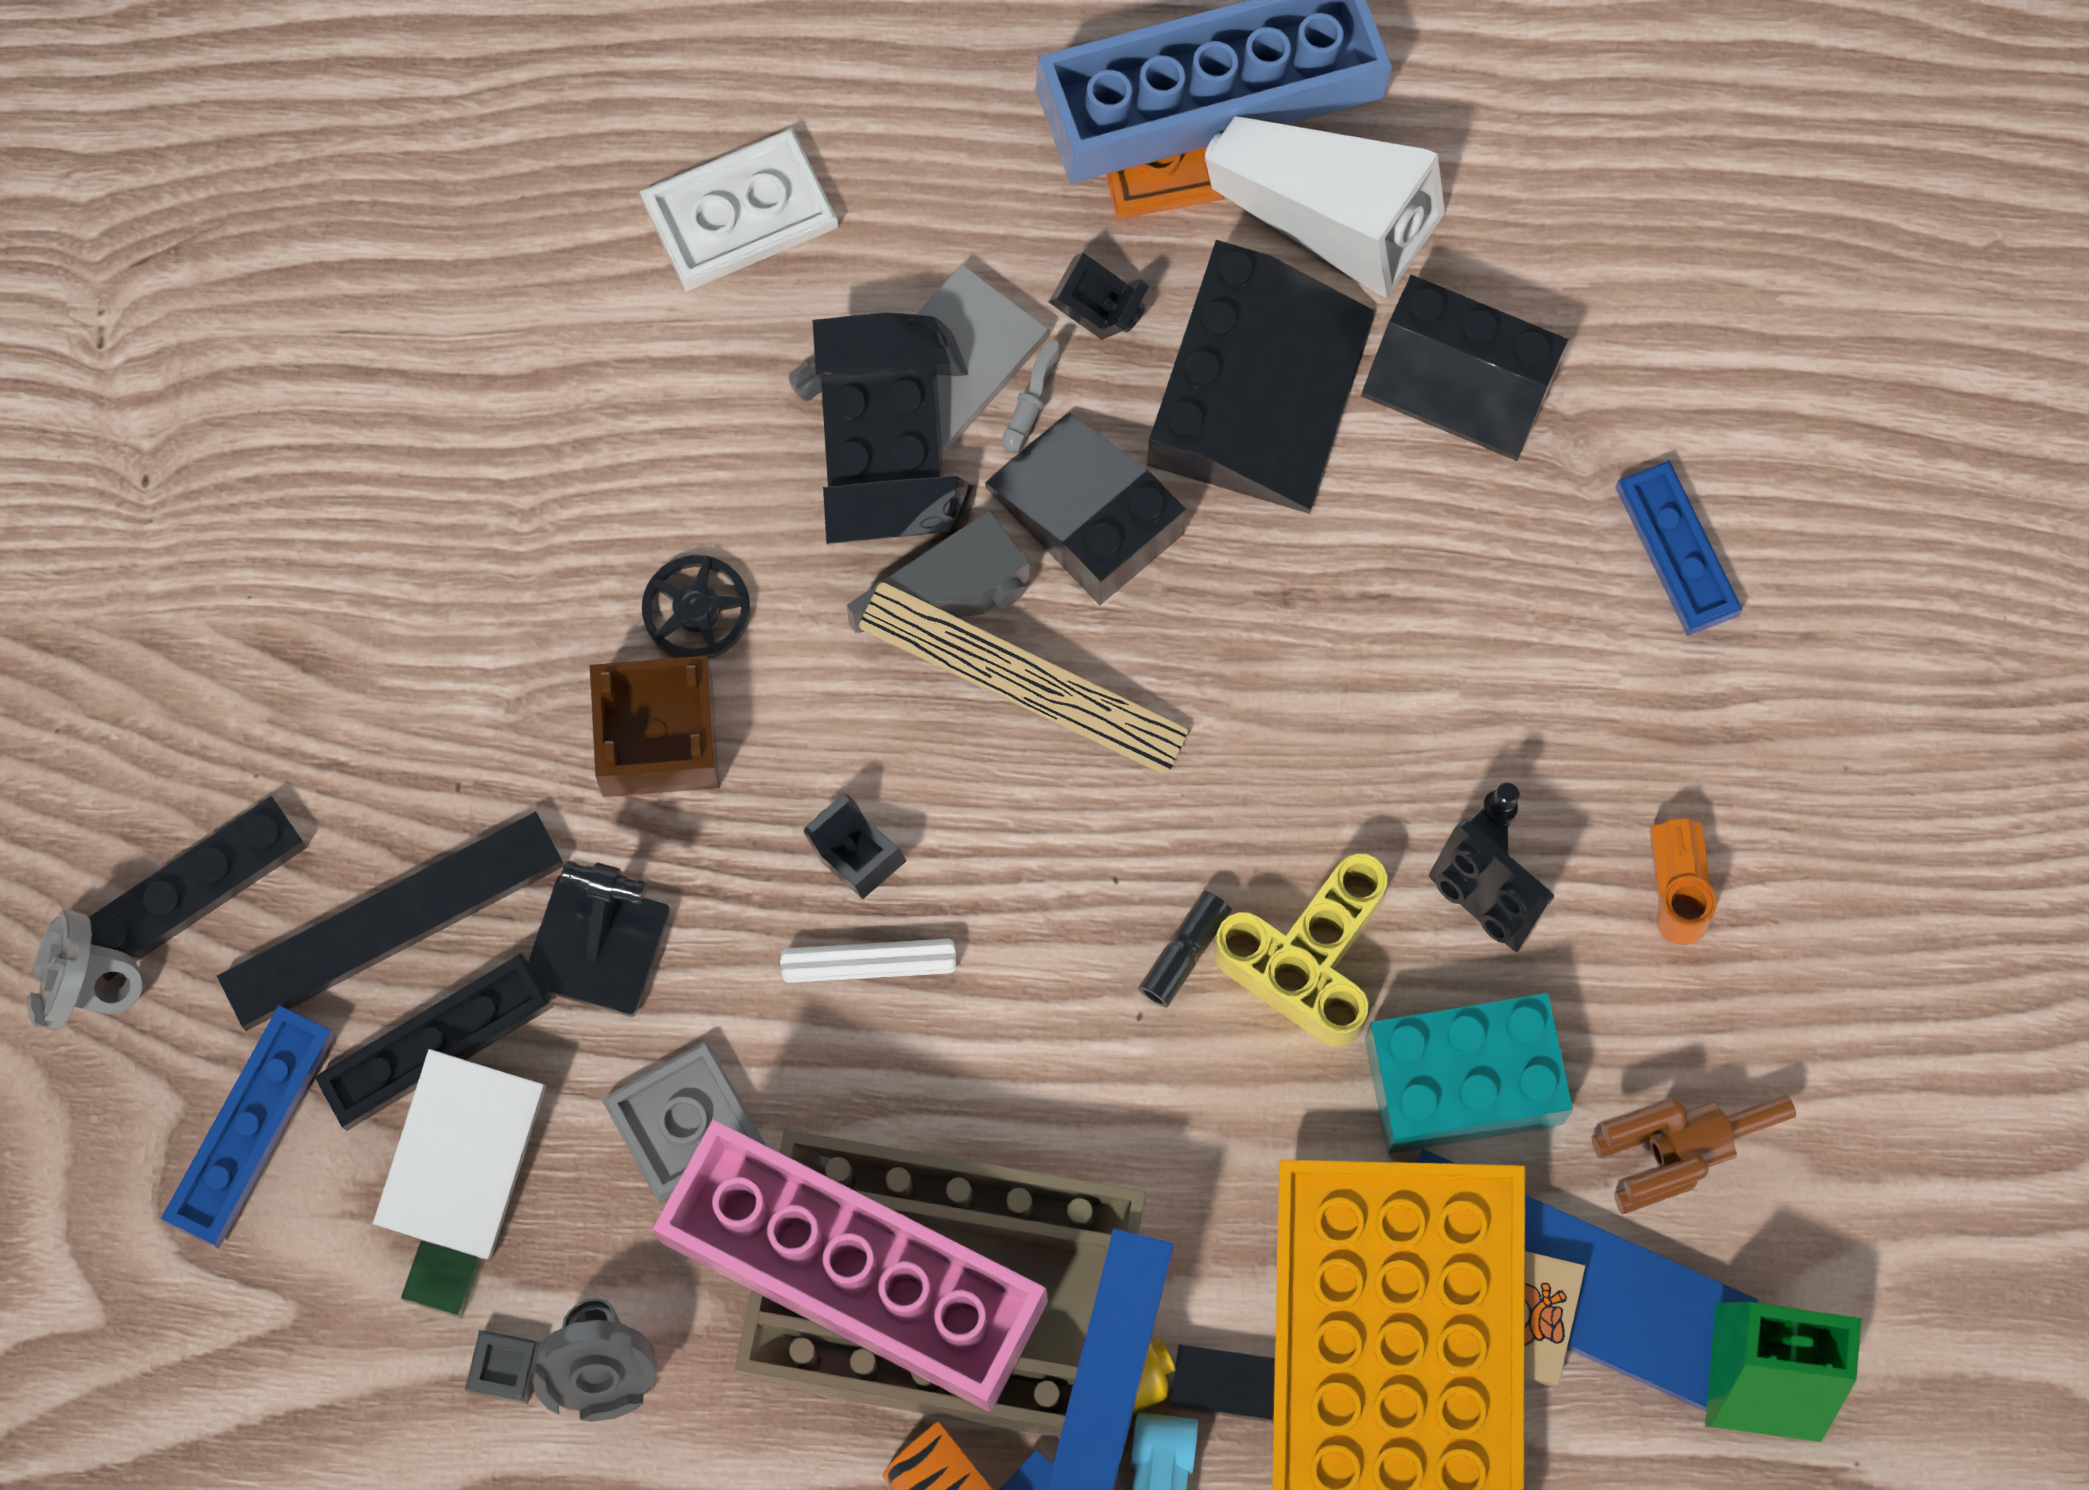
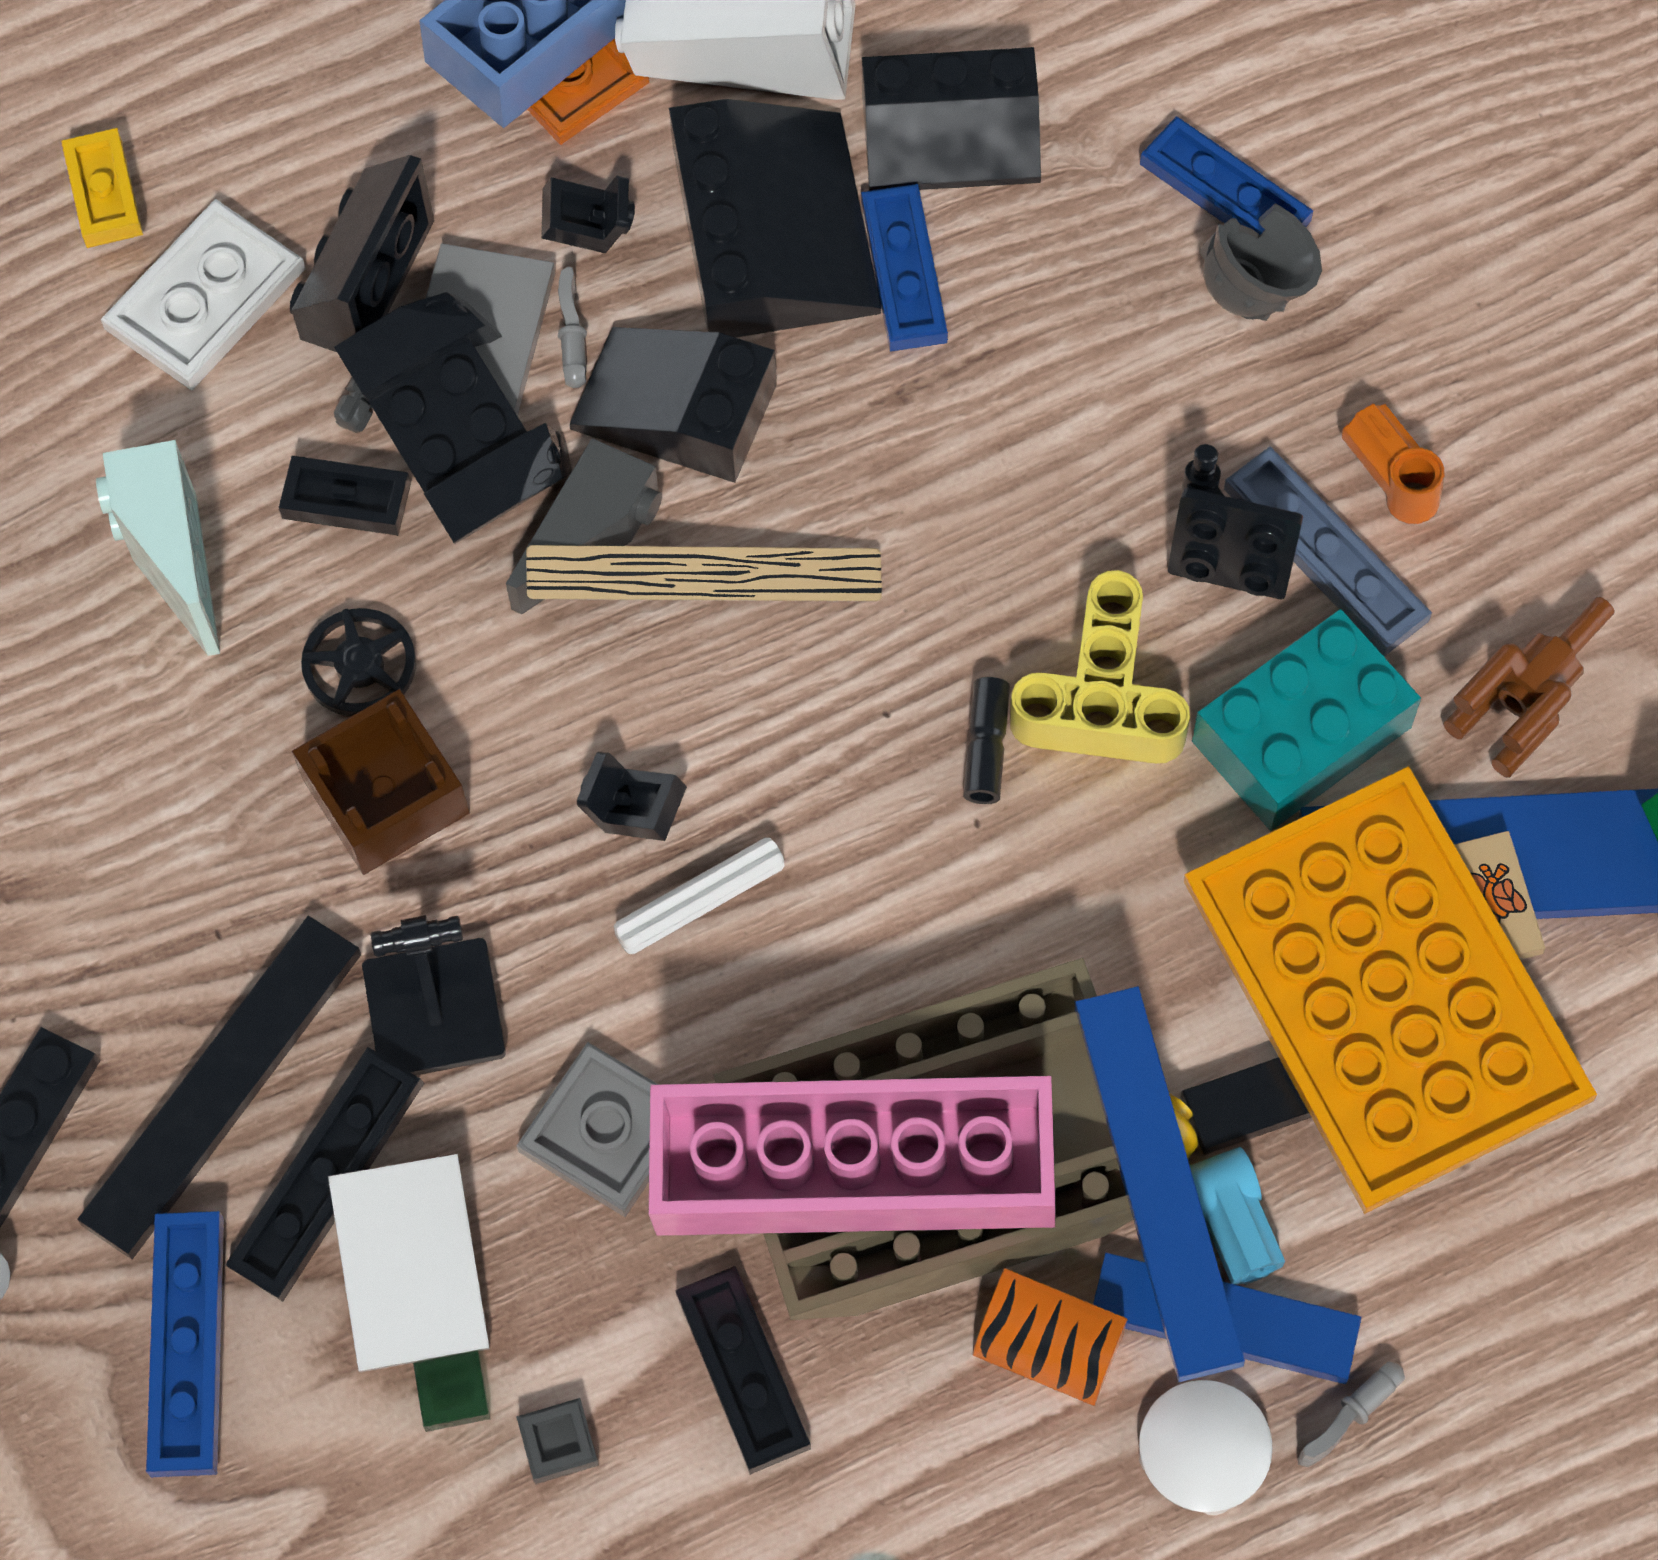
camera: 25 degrees left, 5 degrees down
(590, 404) = (159, 519): none -> light aqua slope
(594, 1364) = (649, 1387): dark grey tile -> none
(685, 1387) = (743, 1370): none -> black tile
(701, 71) = (102, 188): none -> yellow plate
(760, 453) = (344, 495): none -> black plate
(887, 246) = (366, 254): none -> black slope
(1351, 482) = (904, 267): none -> blue tile
(1579, 929) = (1334, 554): none -> sand blue tile
(1658, 643) = (1261, 272): none -> dark grey helmet

